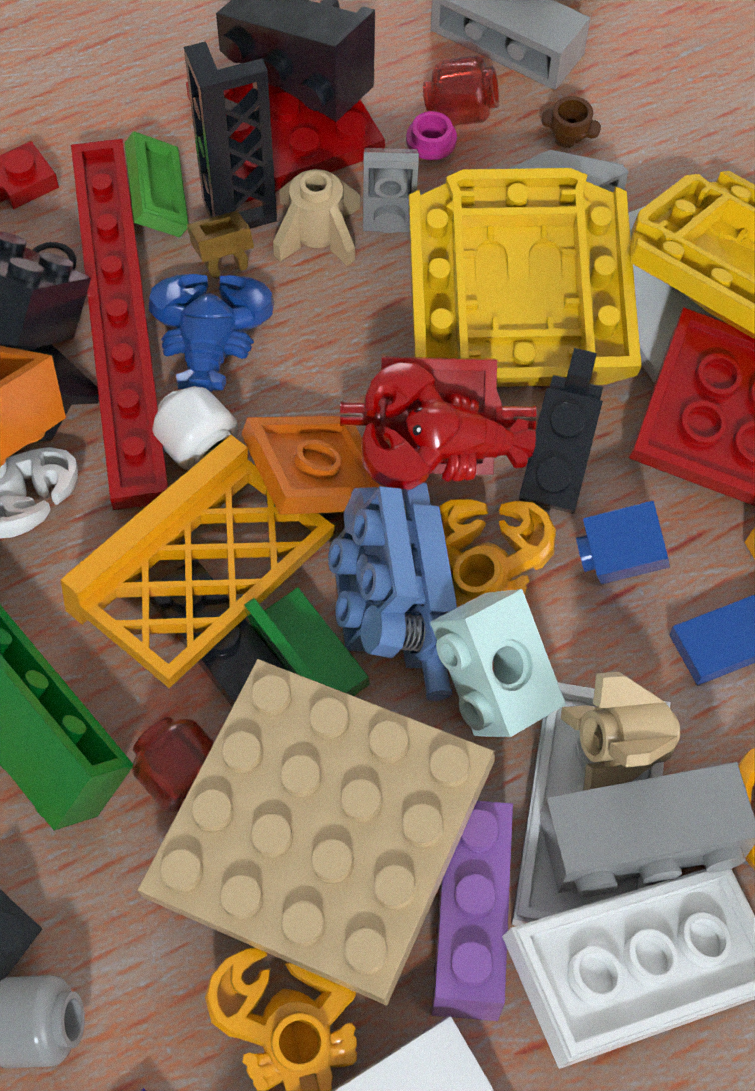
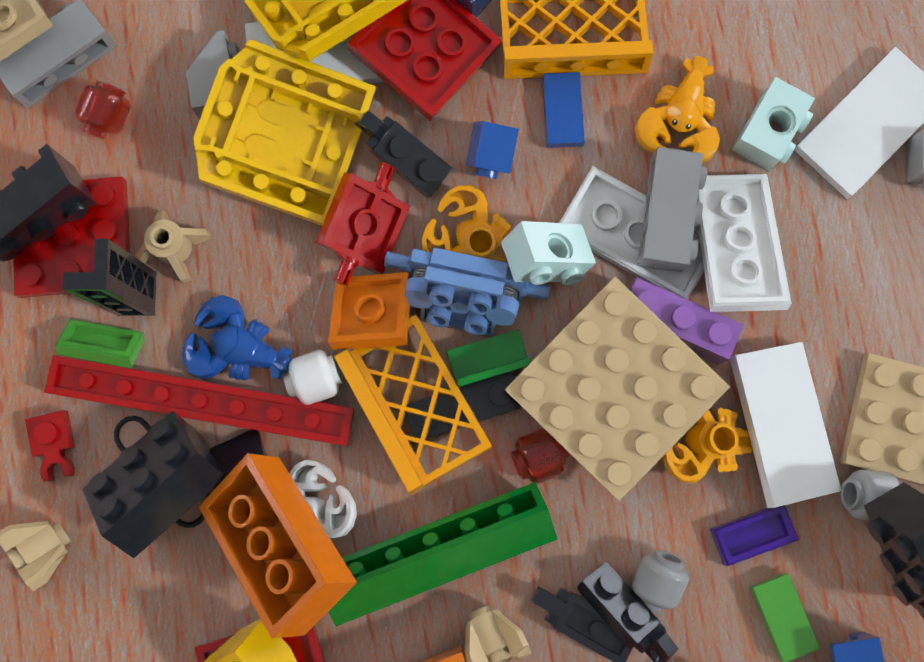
camera: 70 degrees left, 20 degrees up
(221, 237) = (168, 314): pearl gold tile -> none
(386, 188) = (170, 187): light grey slope -> none
(432, 135) = (123, 138): dark pink plate -> none
(440, 429) = (385, 228): red animal -> none
(571, 121) = (149, 39): reddish brown plate -> none
(624, 732) = (615, 201): tan brick -> none

